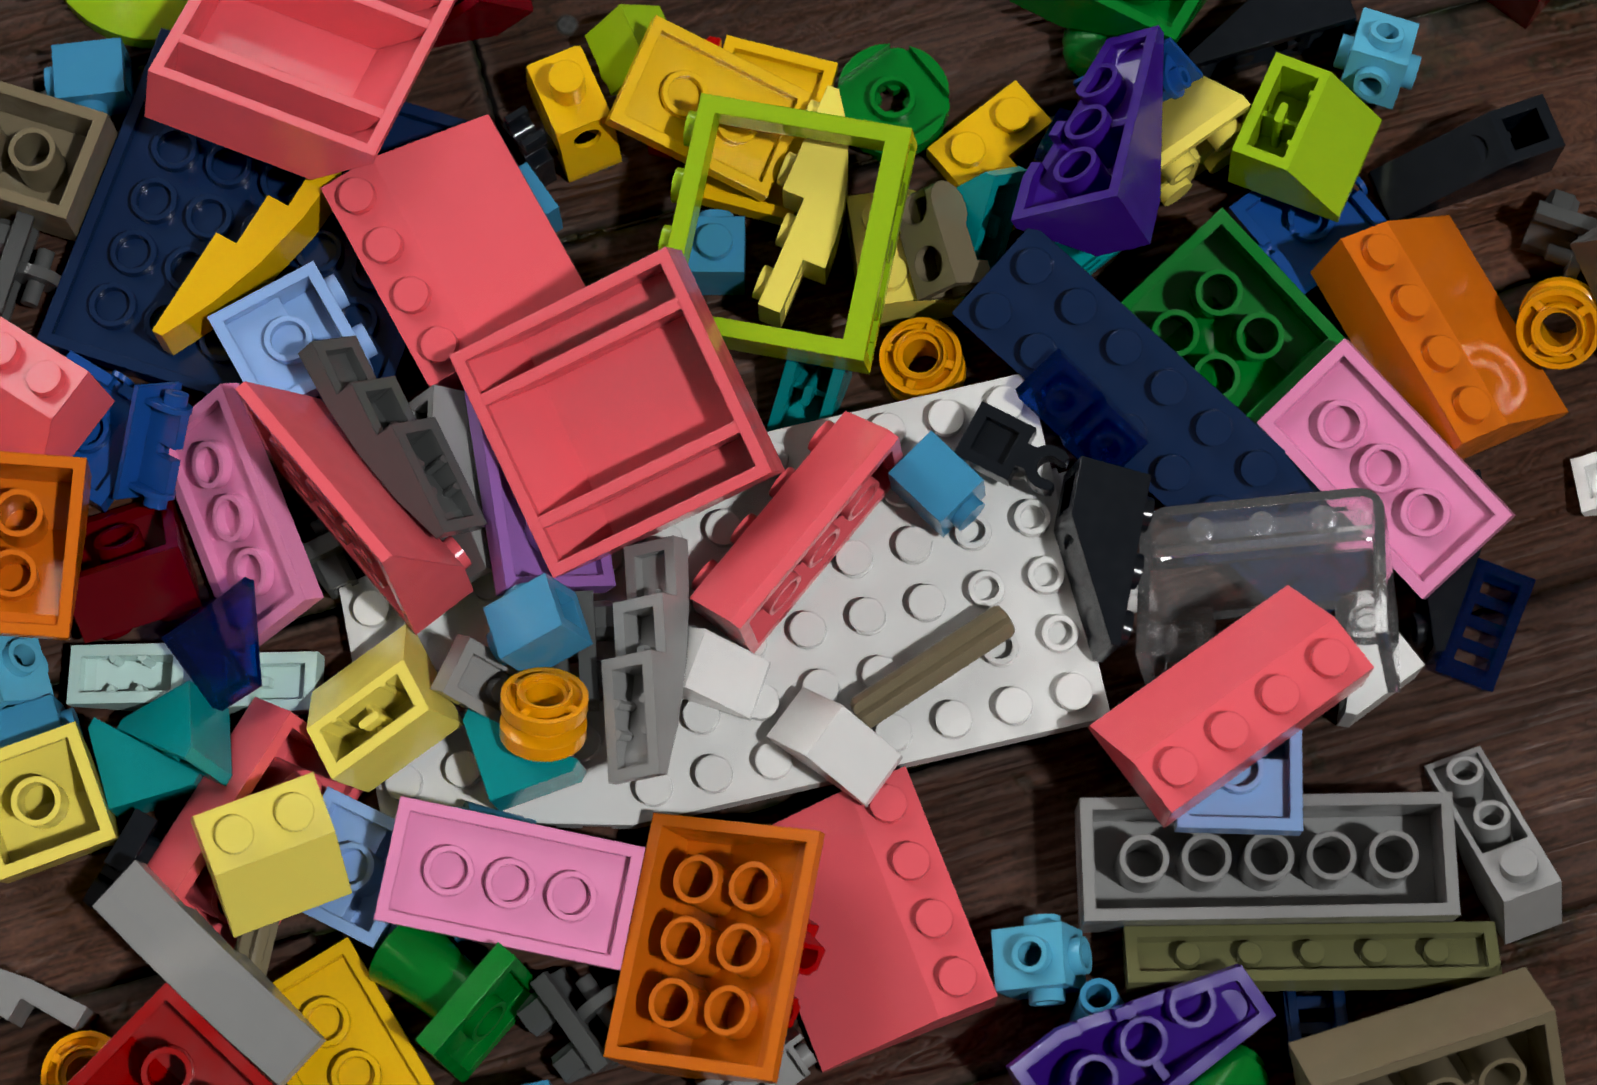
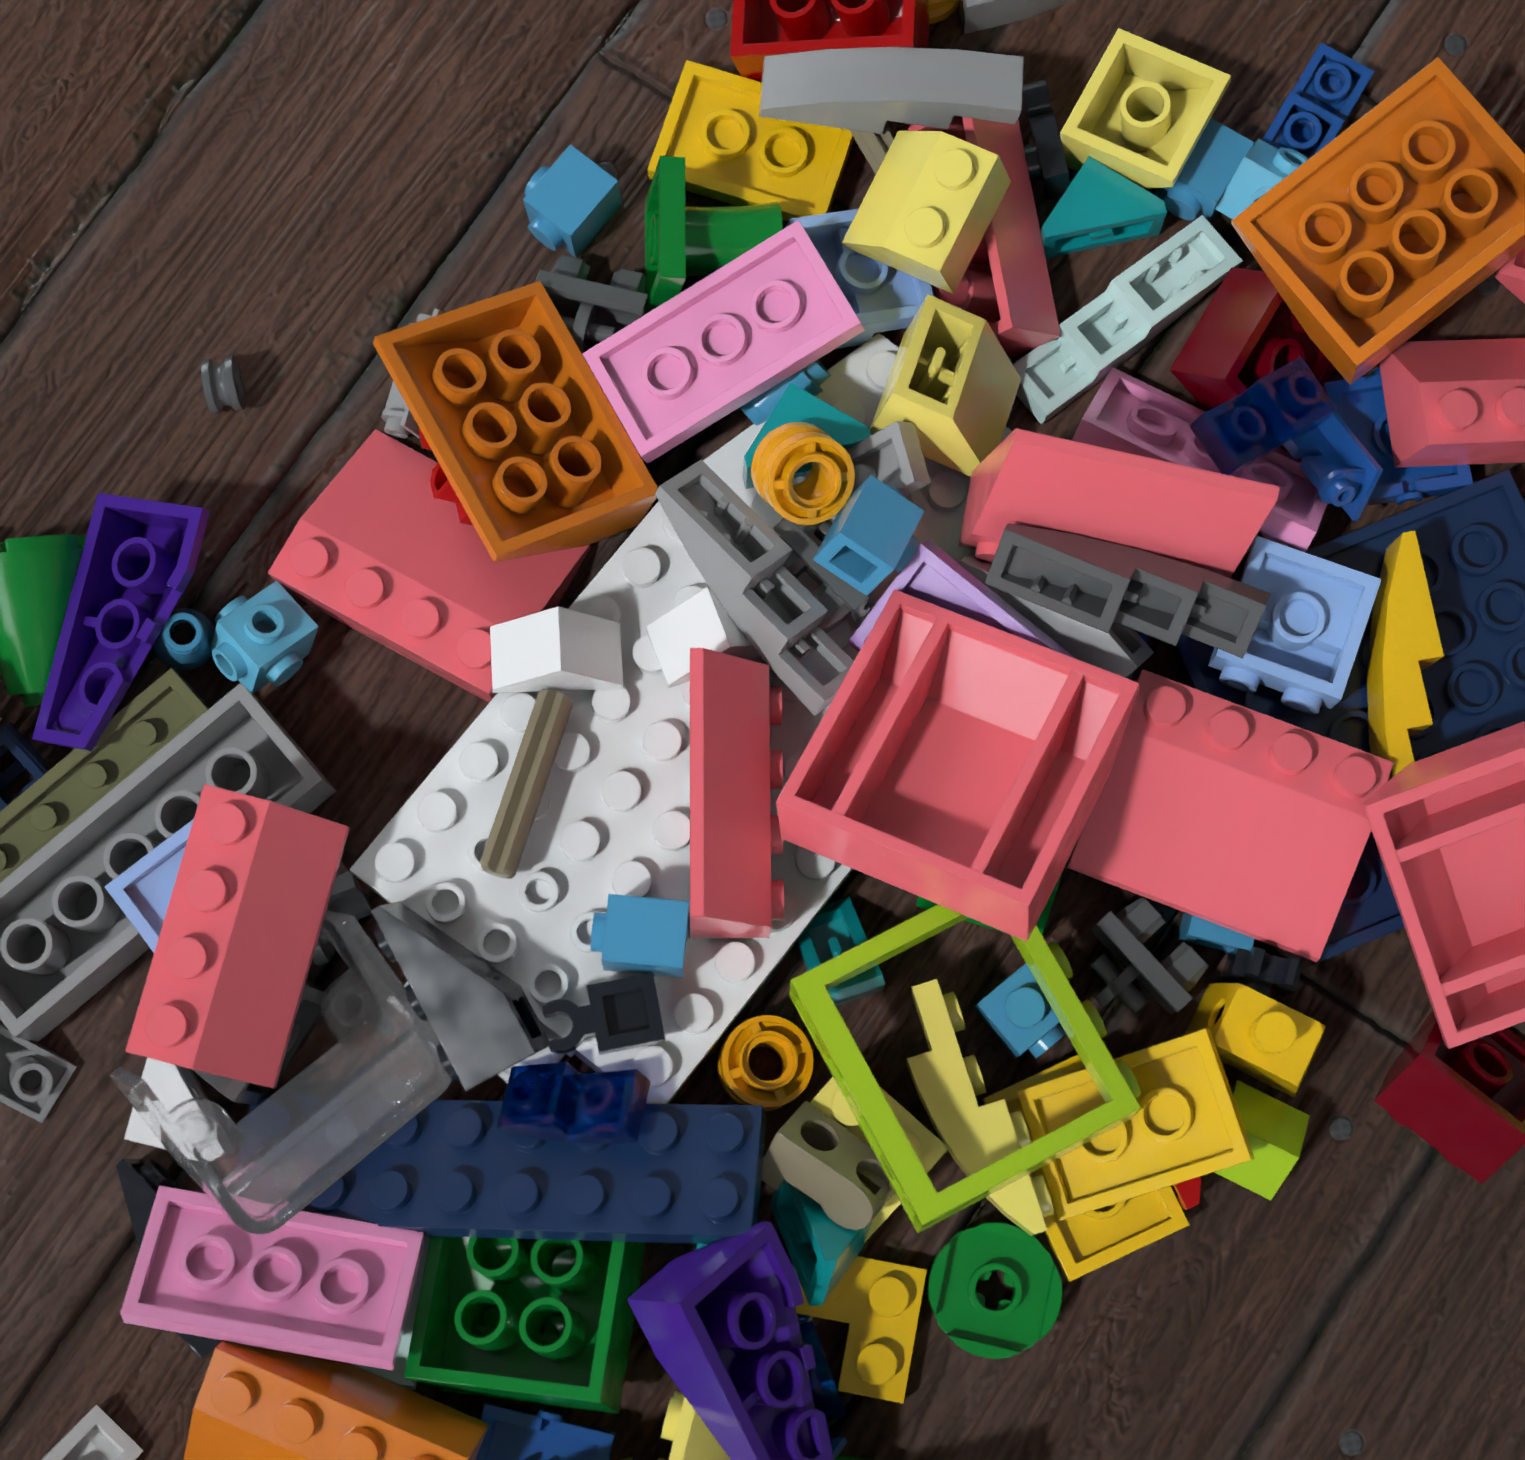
camera: 145 degrees right, 5 degrees up
(176, 499) = (1263, 417): none -> clear blue slope
(185, 730) = (1080, 255): teal slope -> none
(221, 645) = (1123, 341): clear blue slope -> none
(596, 198) = (1164, 981): none -> dark grey hips
(1521, 588) = (95, 1266): clear blue slope -> none

